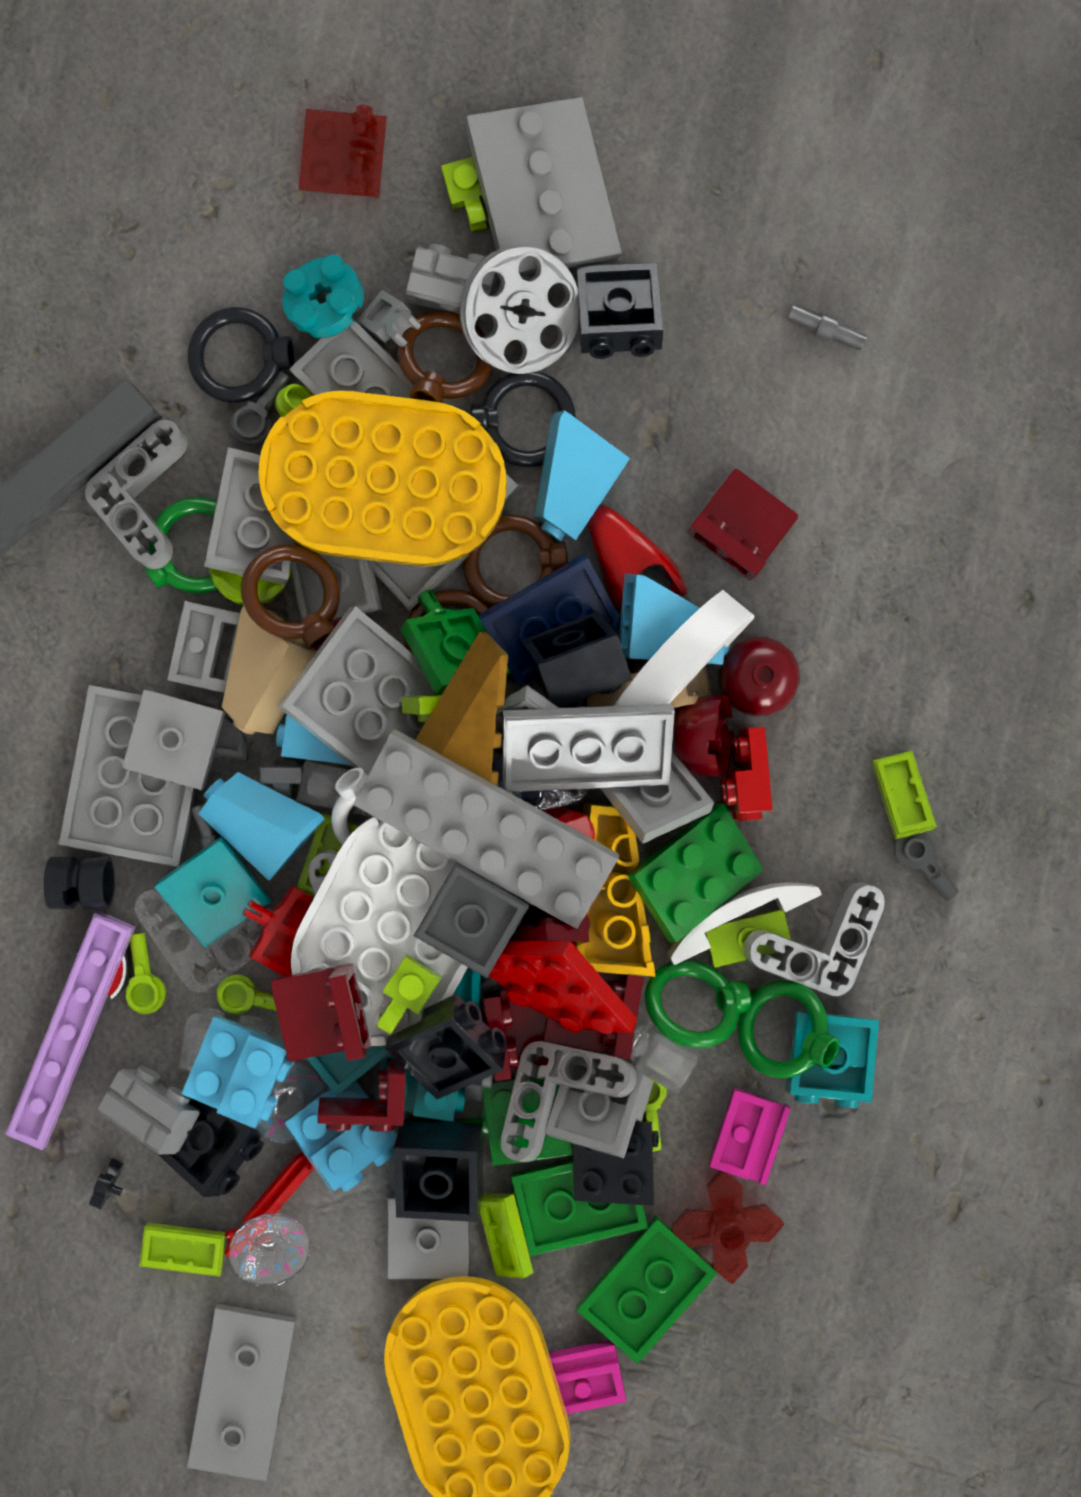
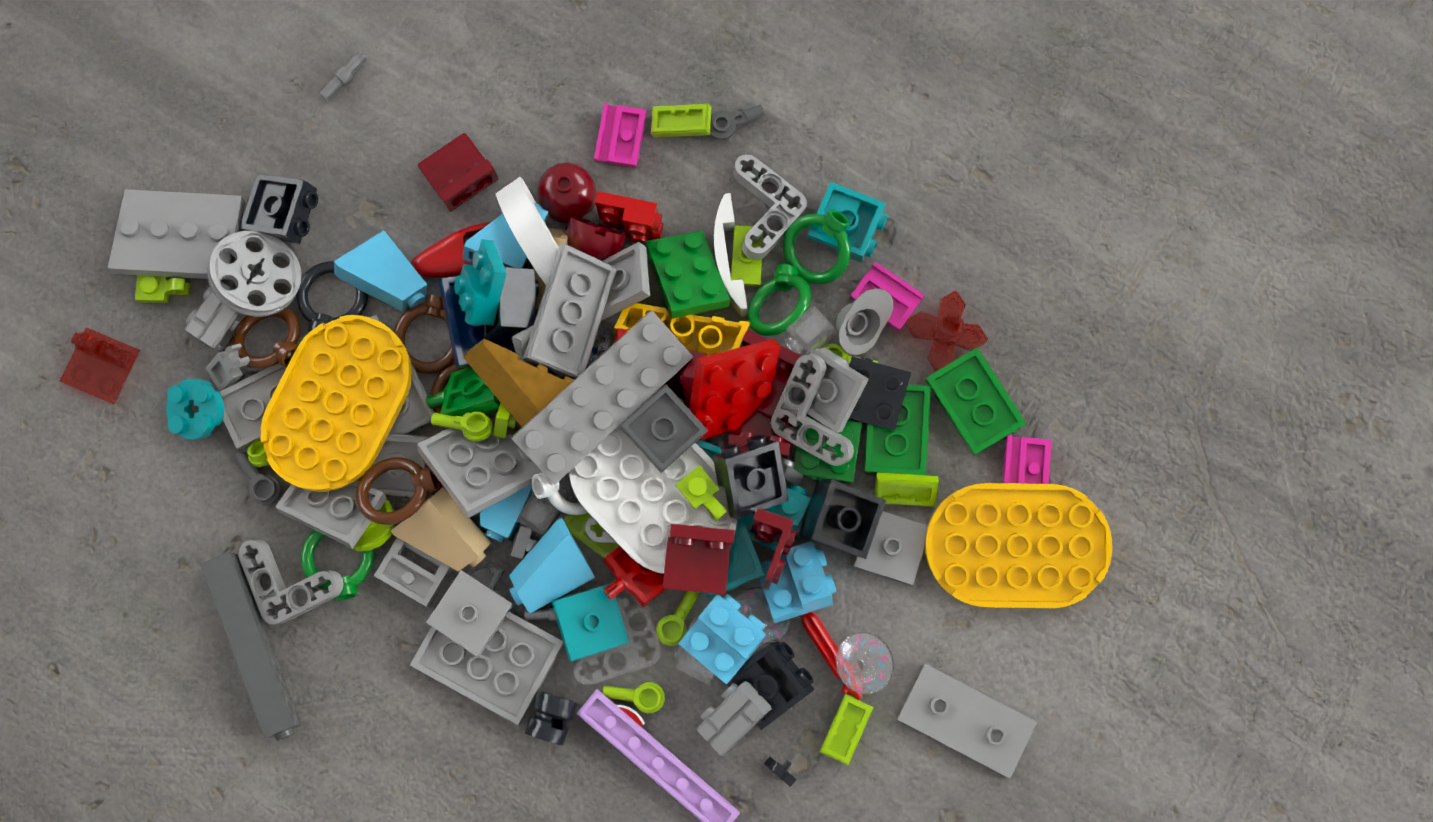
camera: 70 degrees left, 10 degrees down
(277, 354) = (219, 454): black piece -> none
(403, 671) = (474, 425): none -> lime plate
(589, 618) = (481, 285): none -> teal plate
(706, 1117) = (863, 320): none -> light grey piece
(858, 721) = (620, 135): none -> dark pink plate

